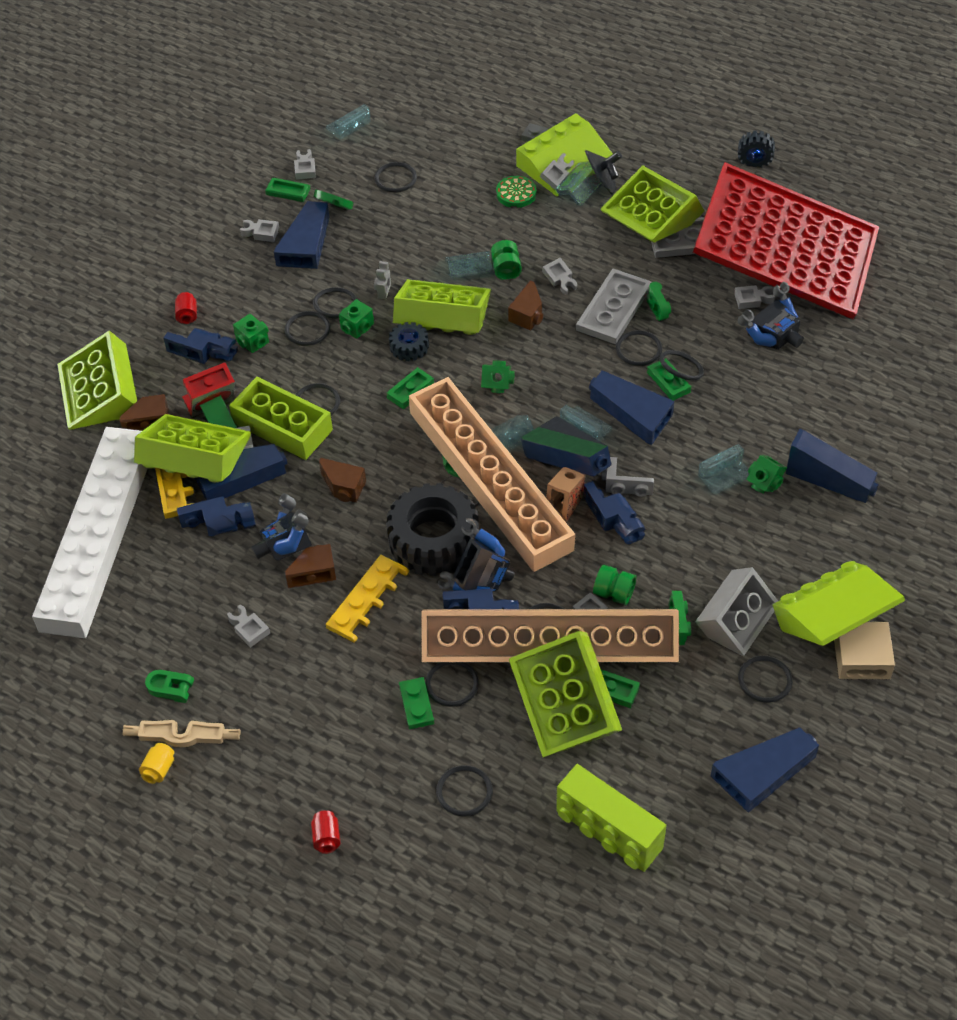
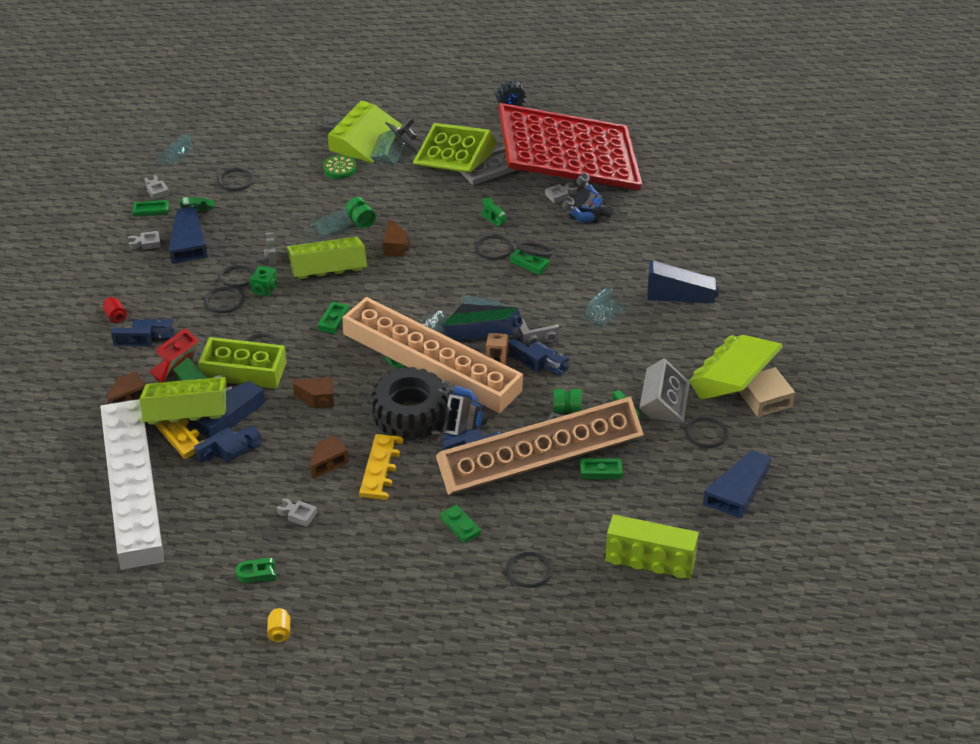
camera: 25 degrees left, 10 degrees down
(97, 382) = (68, 381): lime slope -> none
(167, 731) = (296, 597): tan piece -> none
(251, 333) = (182, 312): green brick -> none
(285, 534) = (295, 438): torso -> none
(325, 832) = (441, 627): red brick -> none
(408, 341) = (314, 286): black wheel -> none
(452, 703) = (459, 502): black tyre -> none
(489, 379) = (393, 293): green brick -> none
(556, 172) = (367, 143): light grey plate -> none
(559, 273) = (406, 213): light grey plate -> none
(565, 693) = (574, 478): lime slope -> none
(613, 306) = (460, 224): light grey plate -> none
(632, 405) = (511, 283): dark blue slope -> none
(766, 474) = (633, 295): green brick -> none

